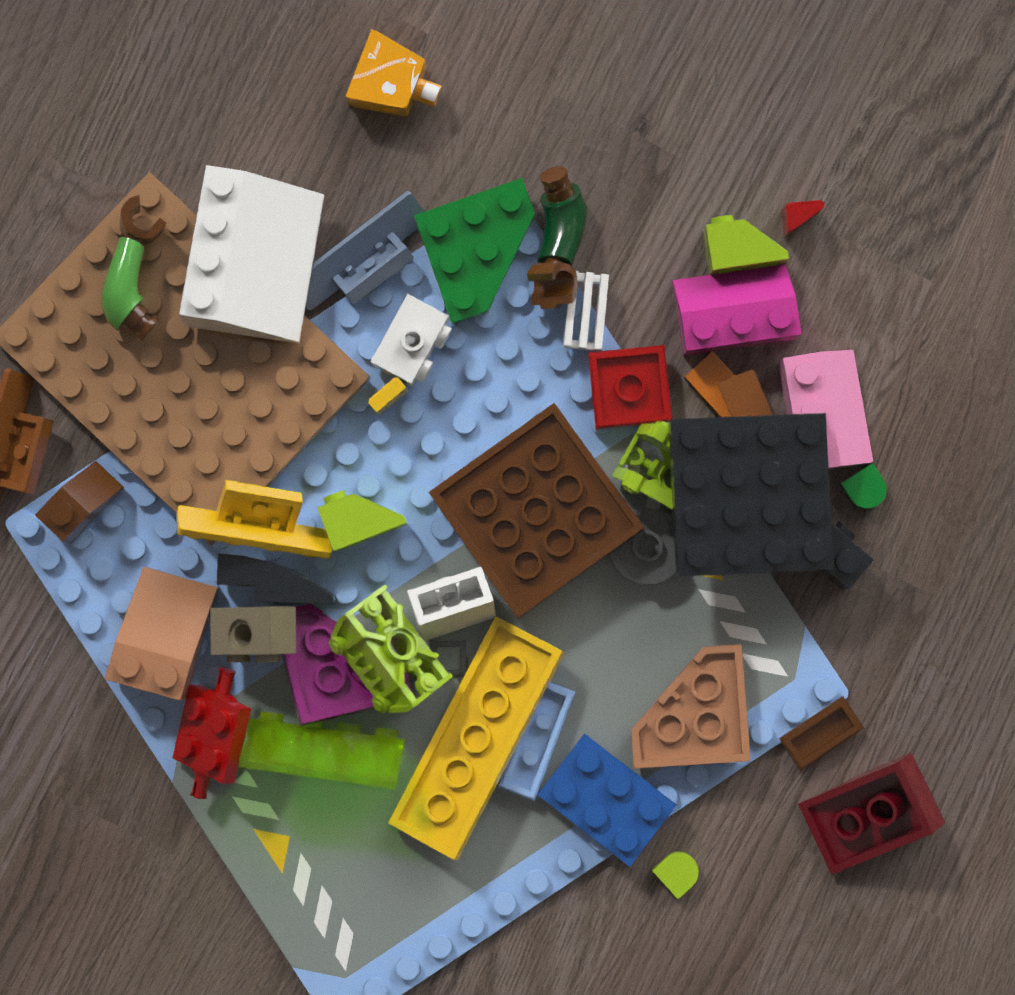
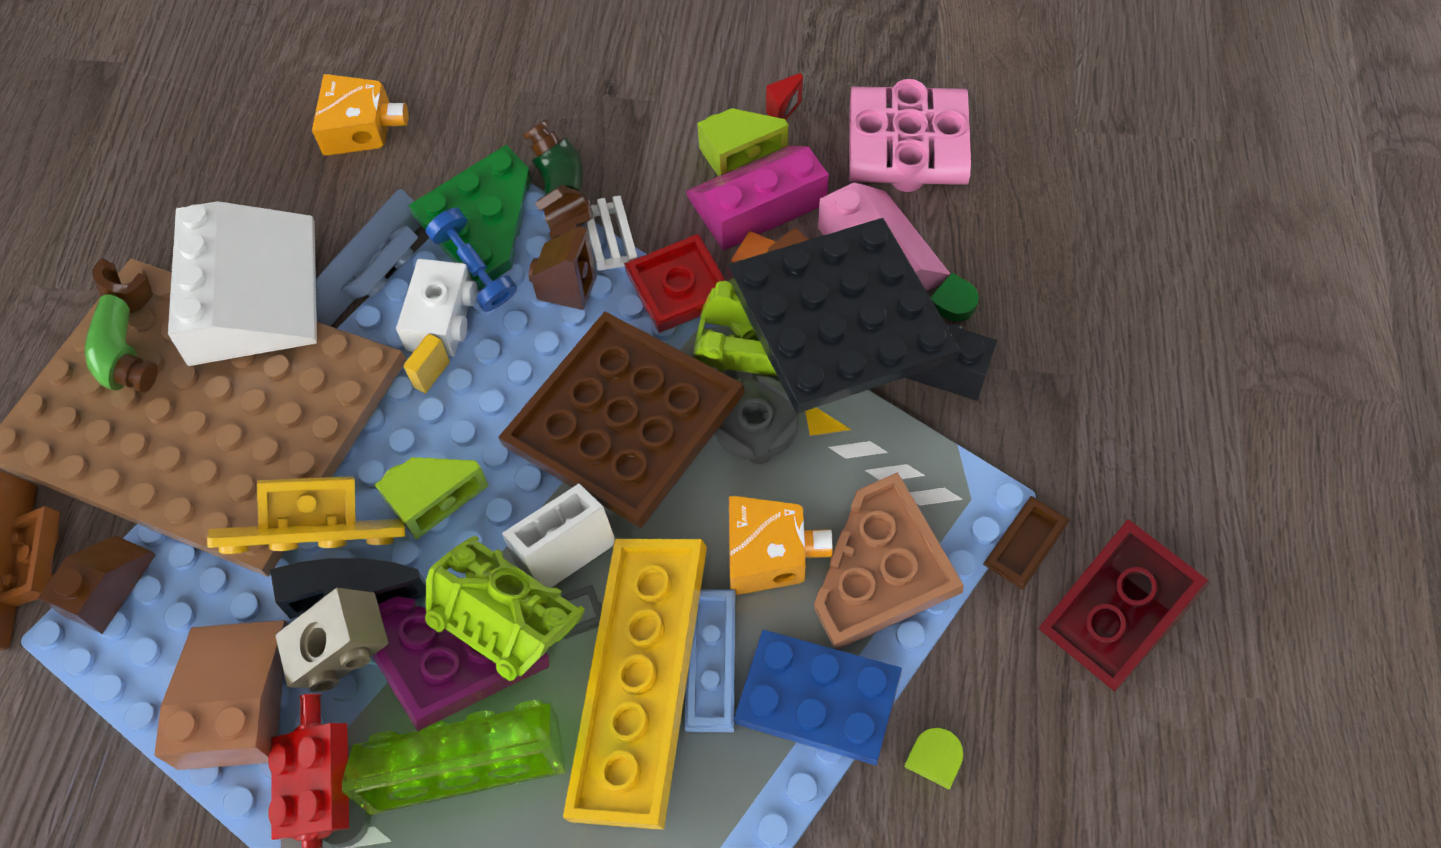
camera: 15 degrees left, 25 degrees down
(465, 345) = (446, 227): none -> blue wheel
(530, 348) = (564, 270): none -> reddish brown slope
(616, 667) = (770, 544): none -> light orange torso
(945, 292) = (909, 135): none -> bright pink connector

